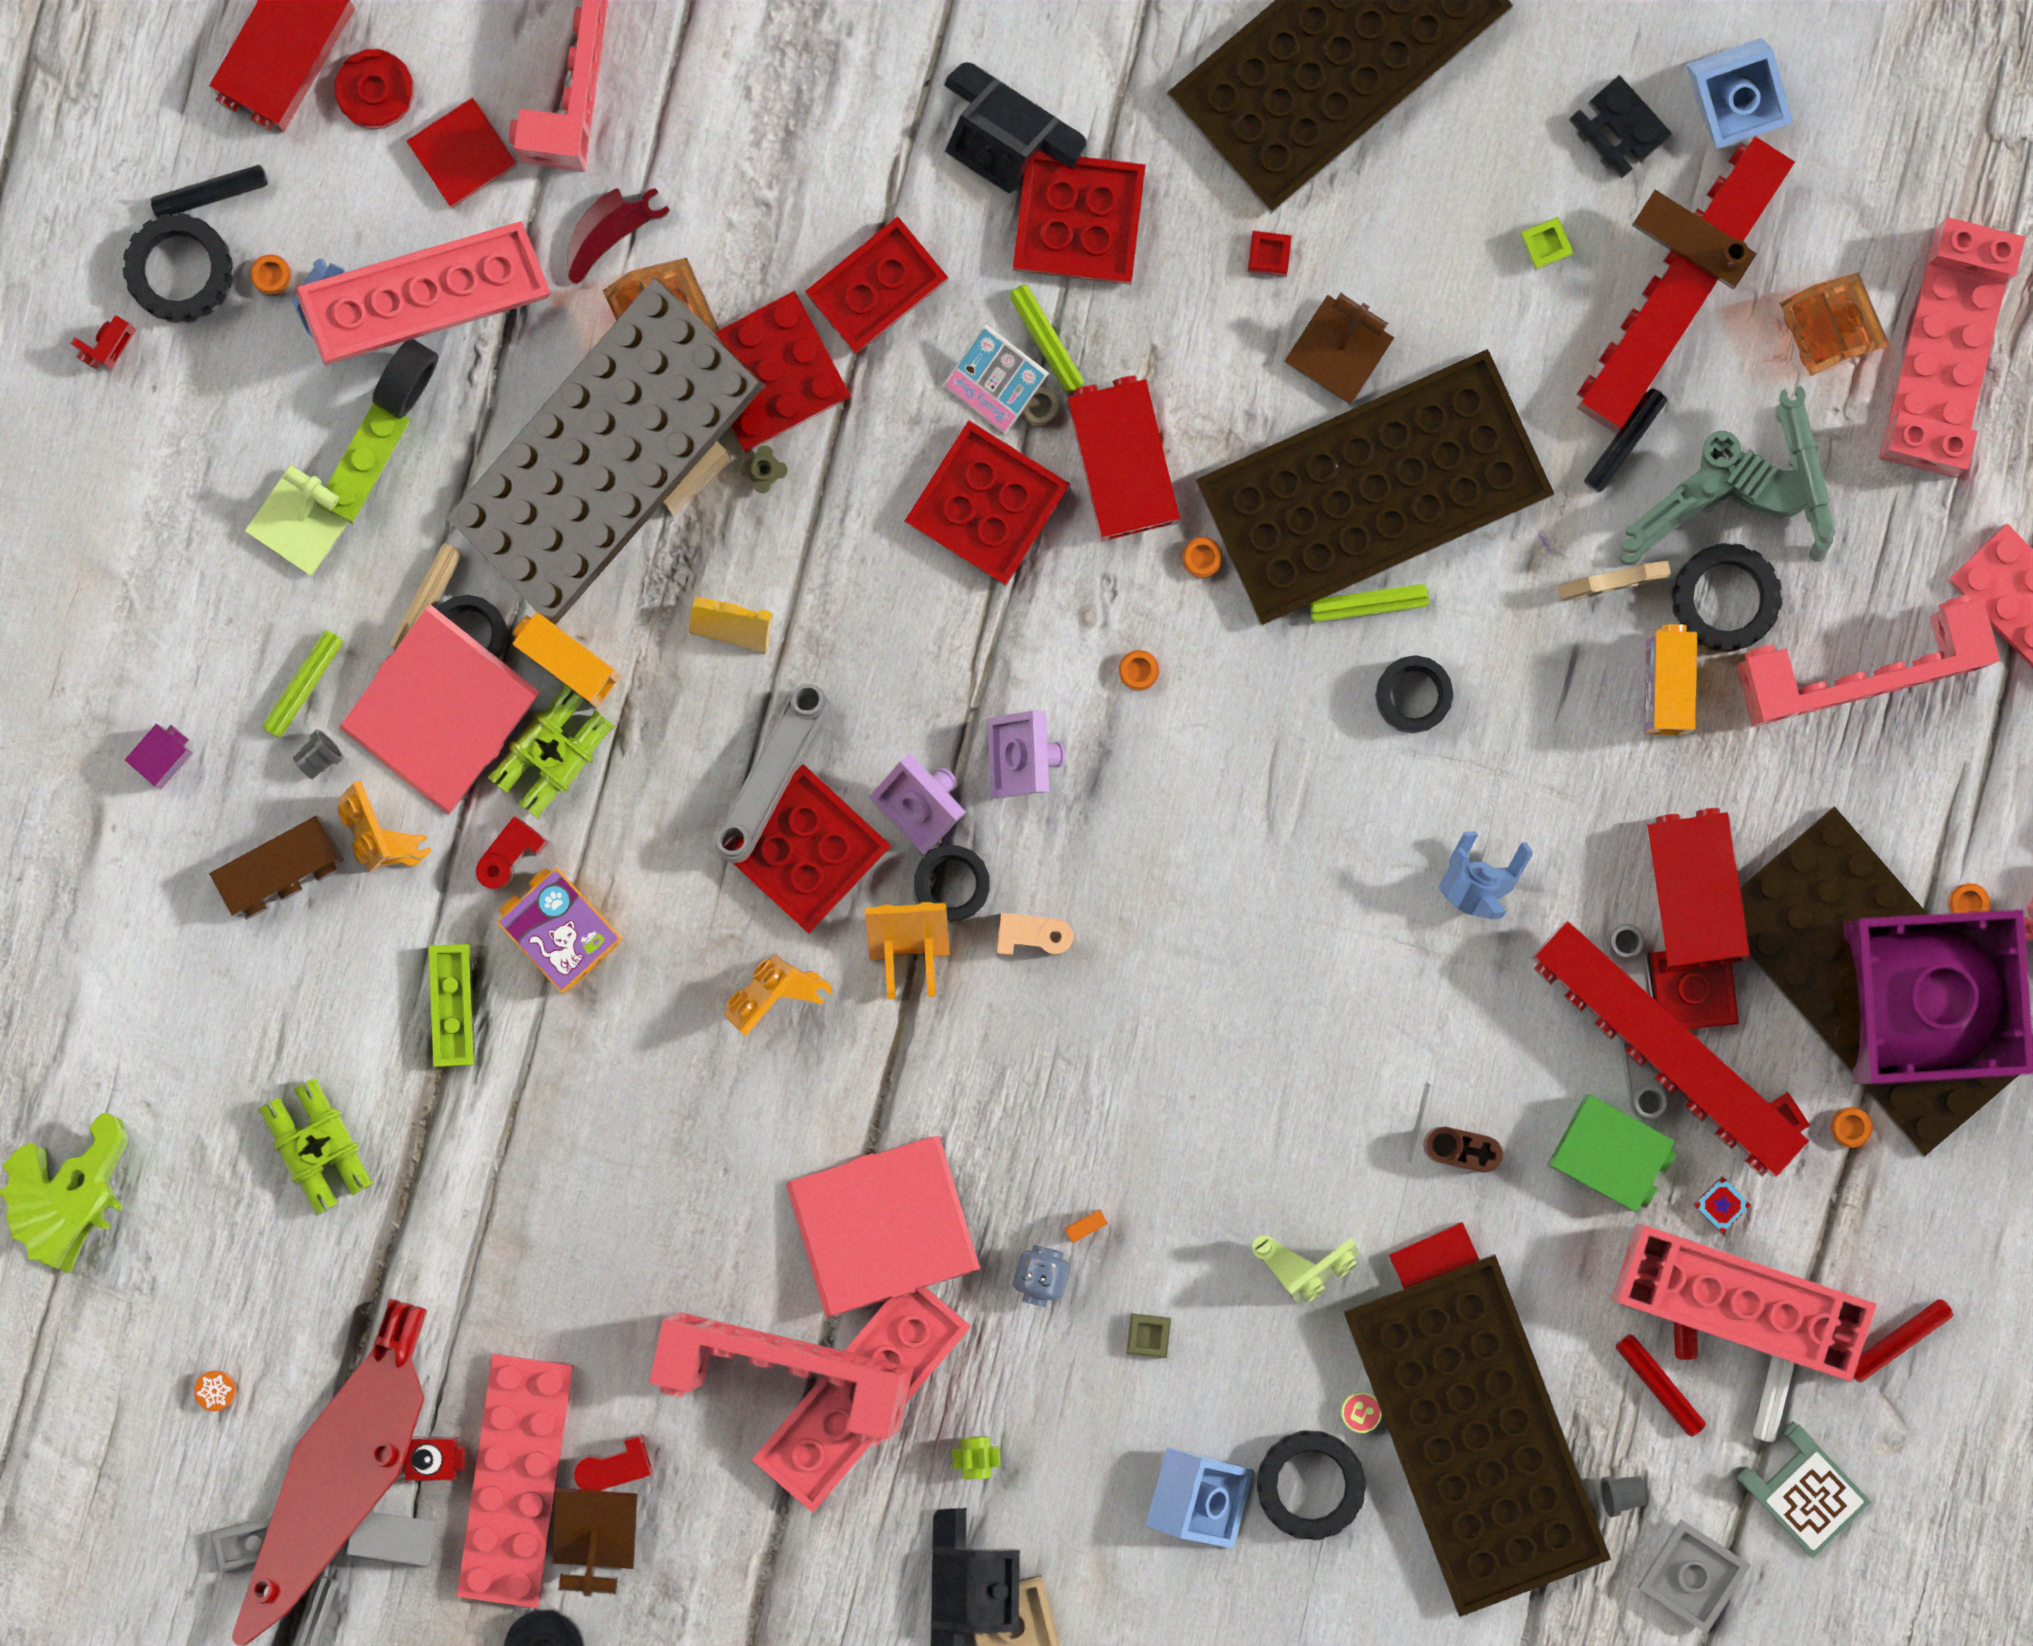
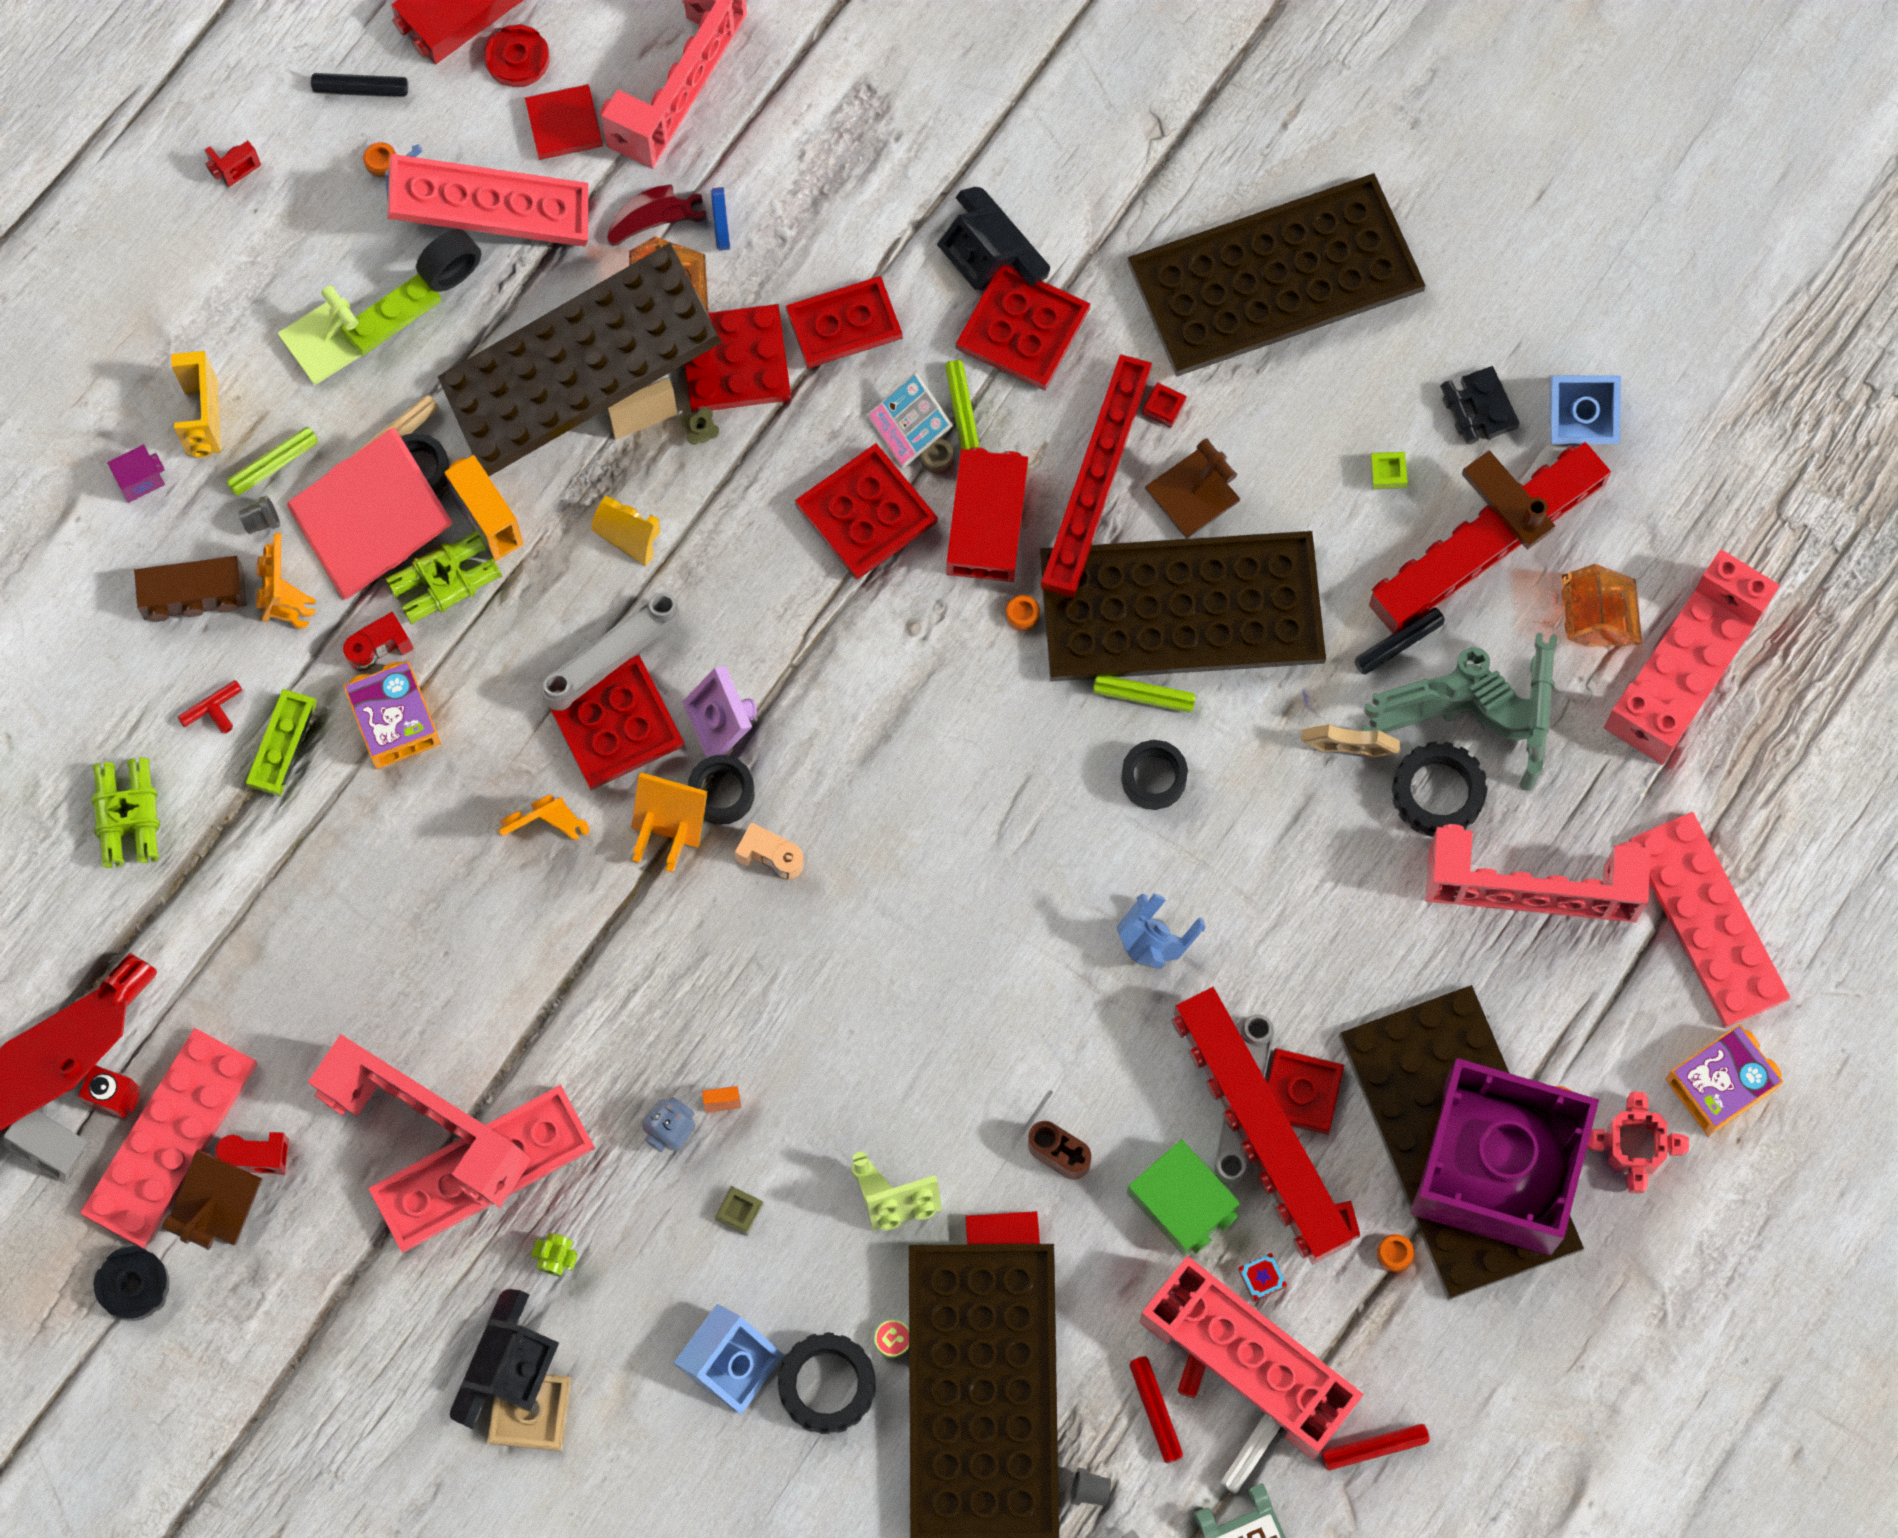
camera: 20 degrees right, 15 degrees down
(154, 233) = (302, 100): black tyre -> none
(187, 615) = (196, 375): none -> yellow panel
(356, 990) = (212, 706): none -> red piece
(689, 211) = (720, 218): none -> blue tile
(882, 1226) = (554, 1039): coral piece -> none
(1021, 754) = (816, 706): lavender tile -> none
(1138, 670) = (938, 681): orange tile -> none
(1228, 370) = (1096, 476): none -> red plate
(1670, 681) = (1367, 833): light orange brick -> none
(1698, 890) = (1332, 1008): red brick -> none

